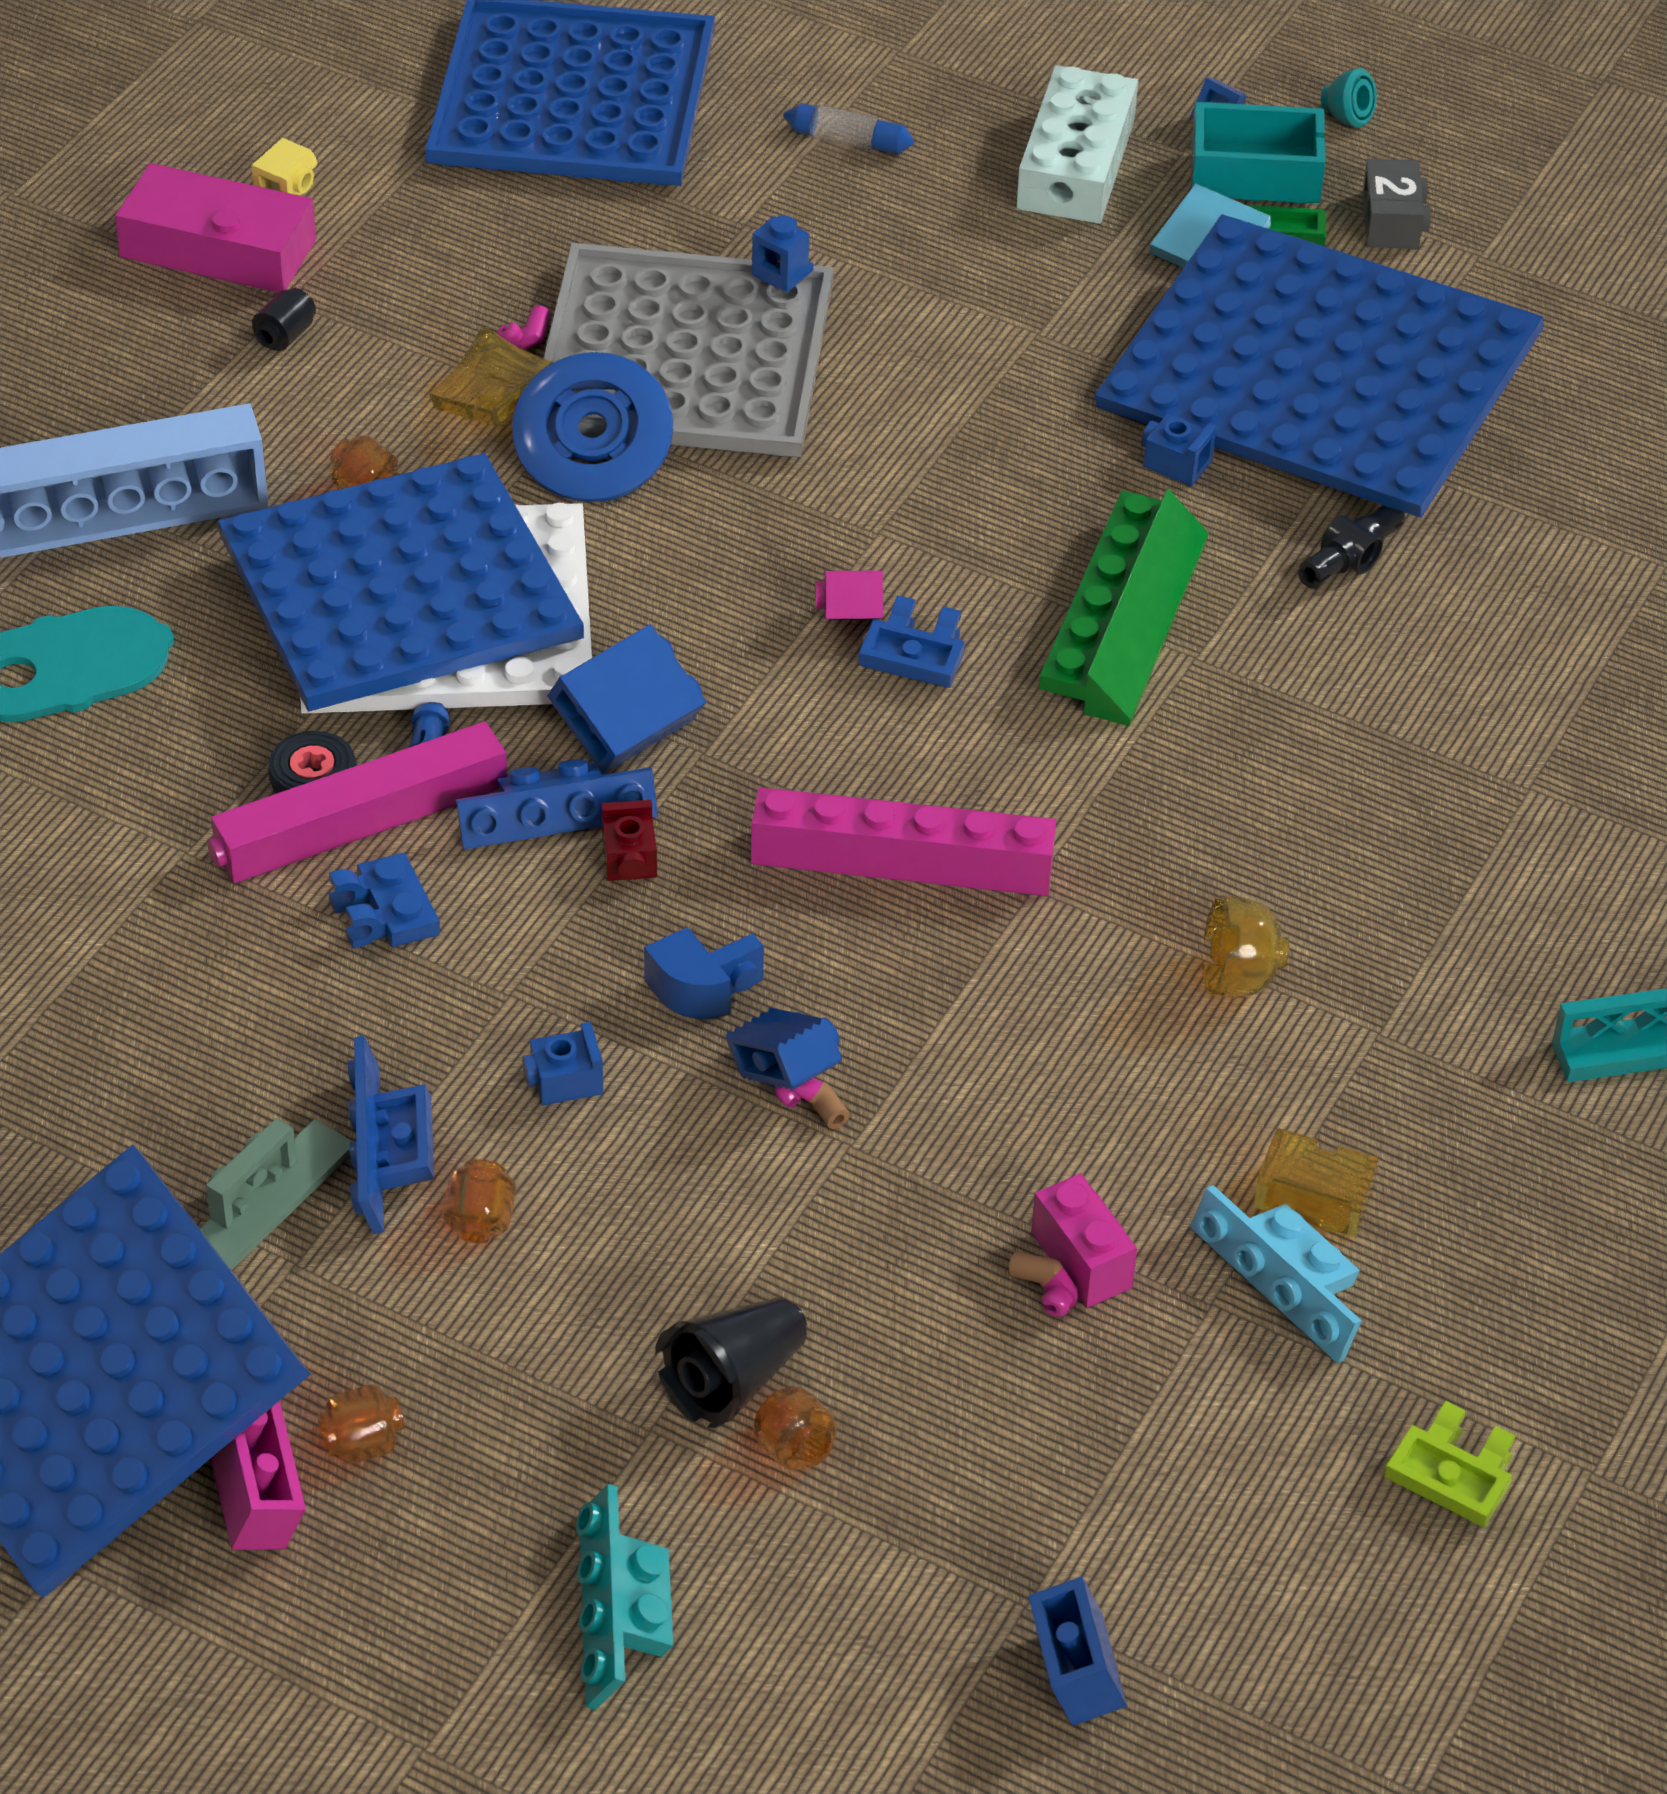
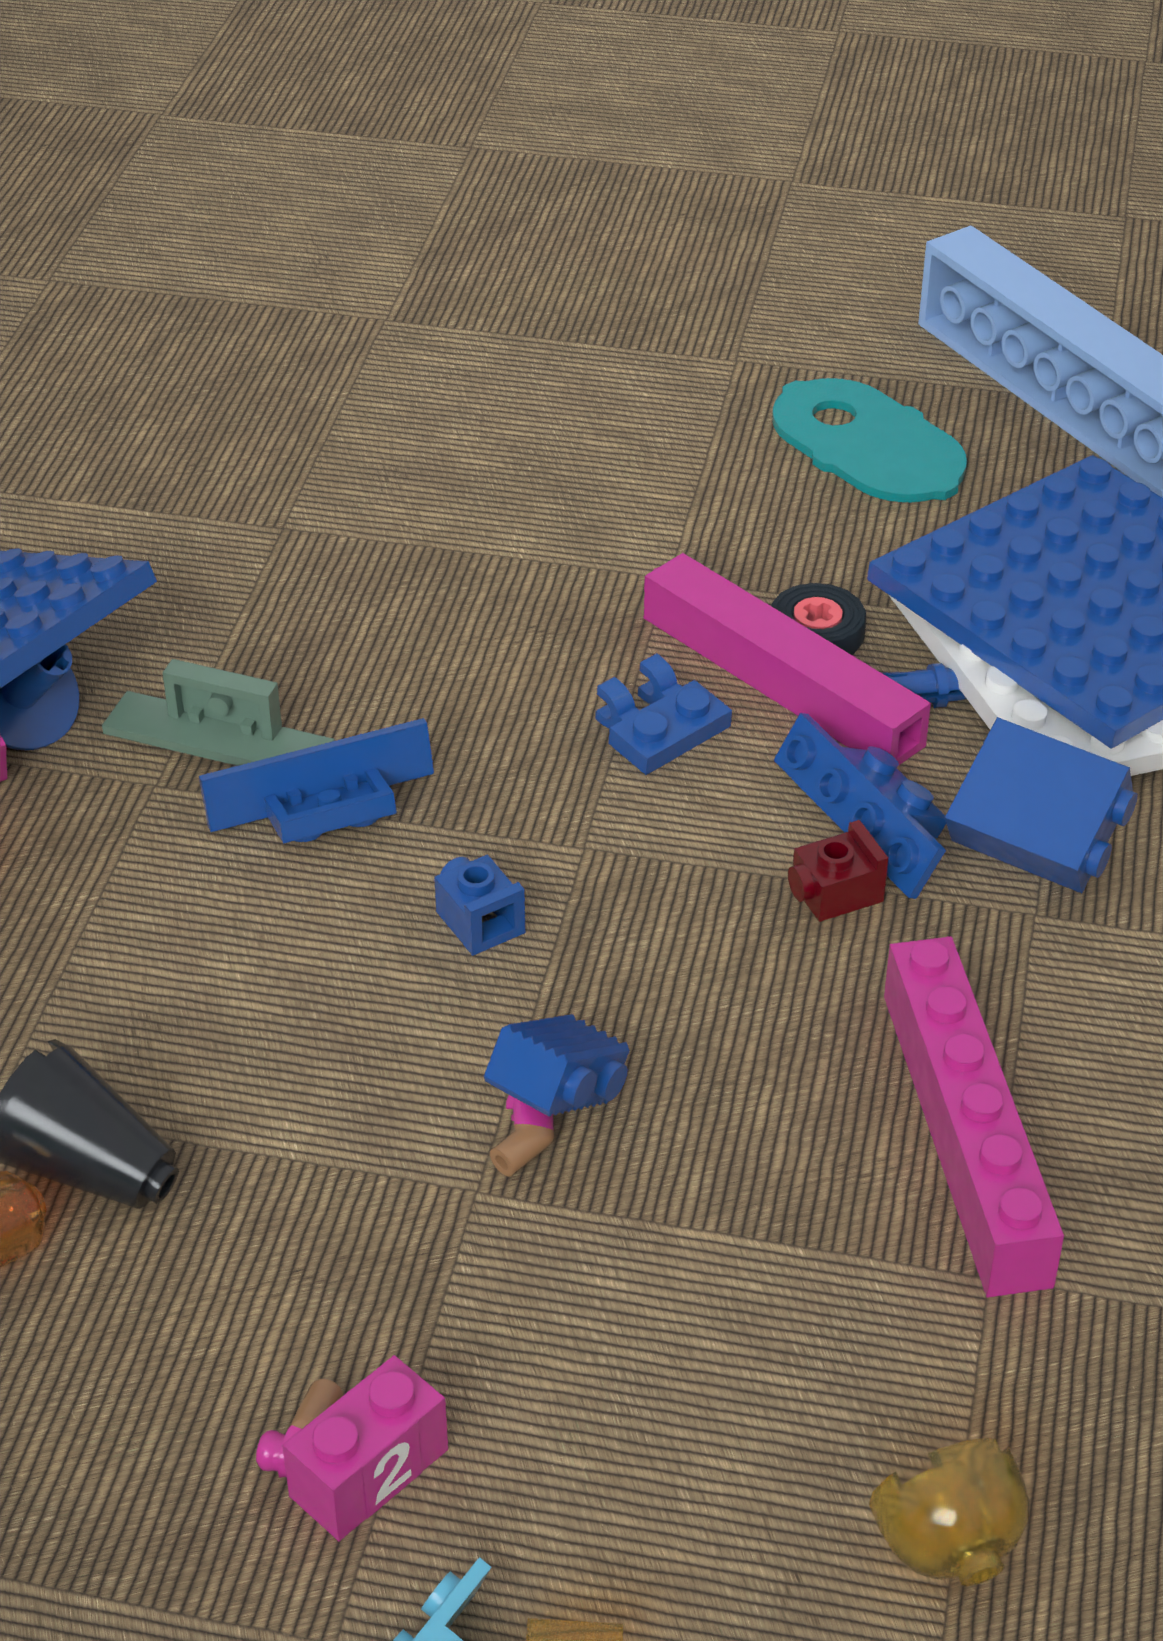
camera: 75 degrees right, 5 degrees down
(479, 1200) = (255, 879): clear orange head -> none
(699, 981) = (663, 979): blue brick -> none

